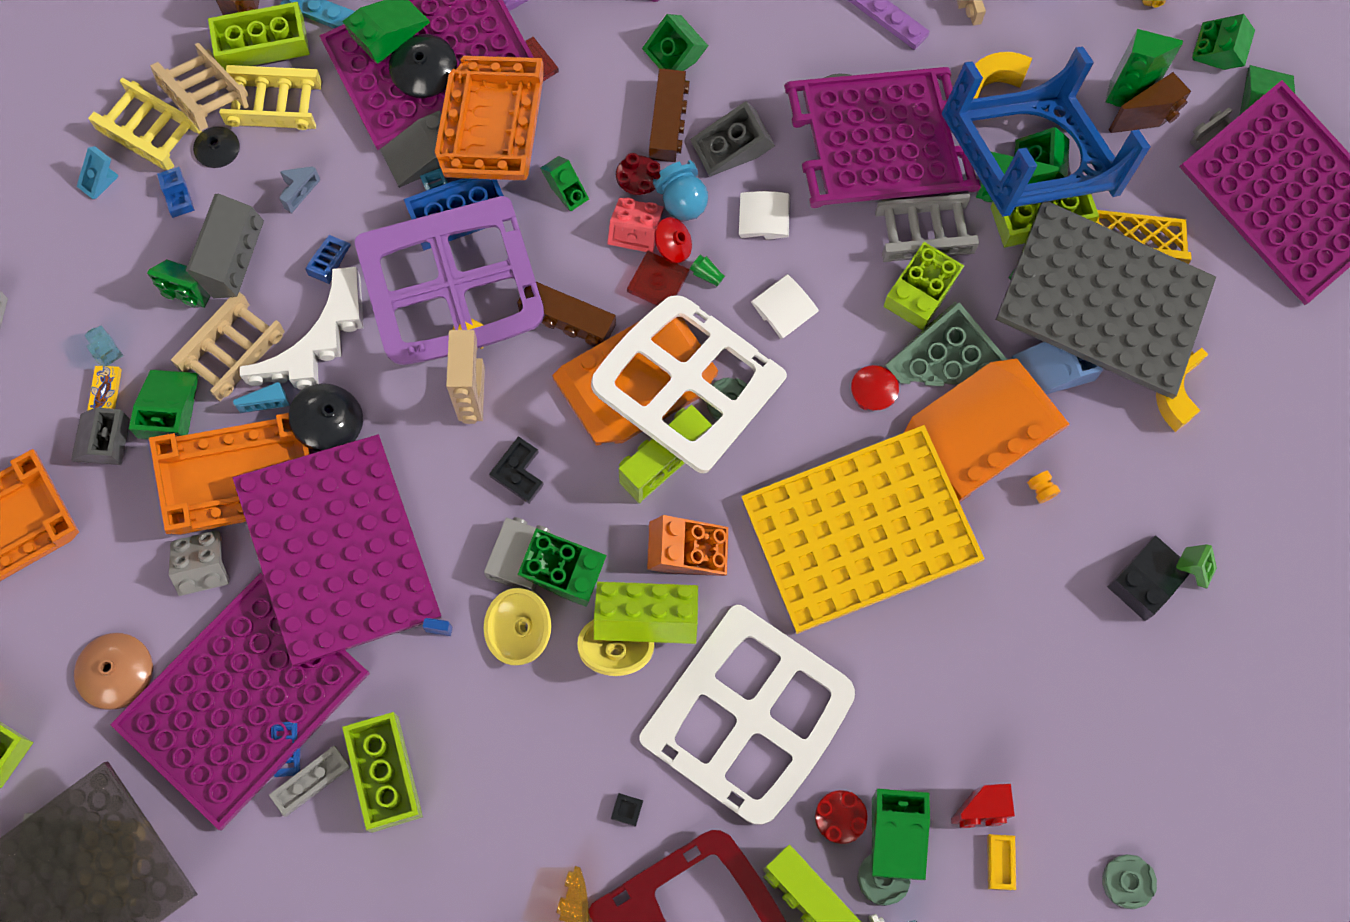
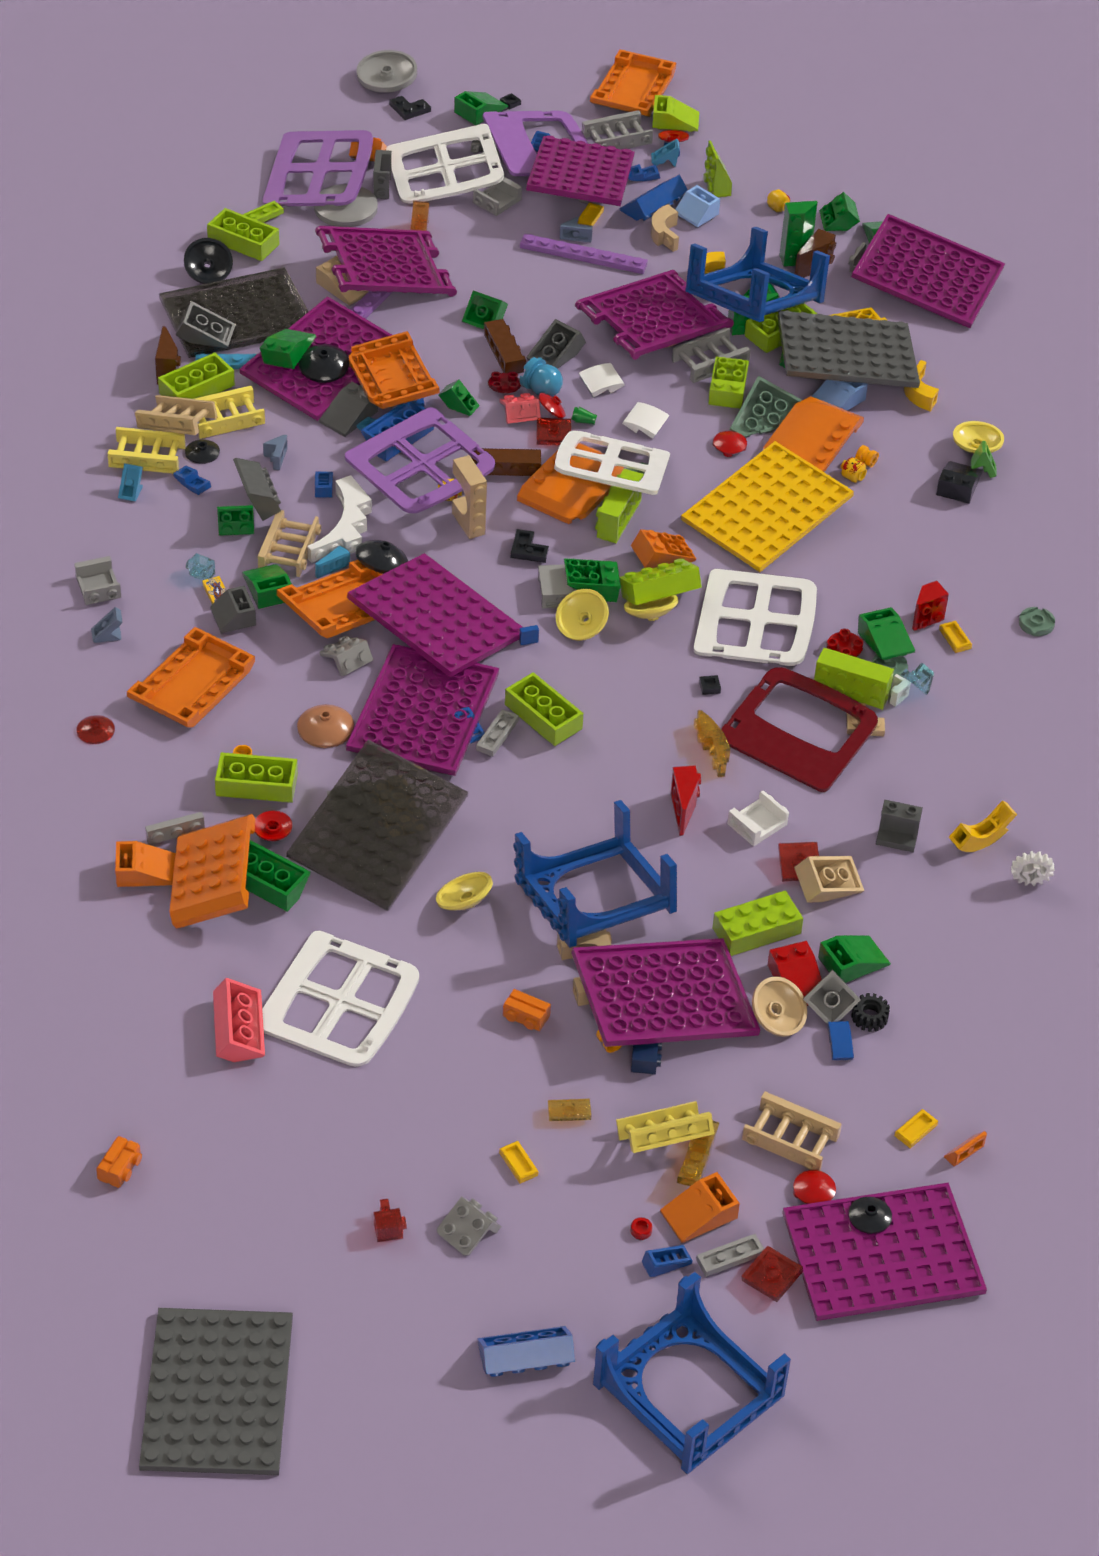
camera: 25 degrees left, 25 degrees down
(1013, 503) = (853, 469): none -> yellow head
(1218, 508) = (971, 434): none -> light yellow dish

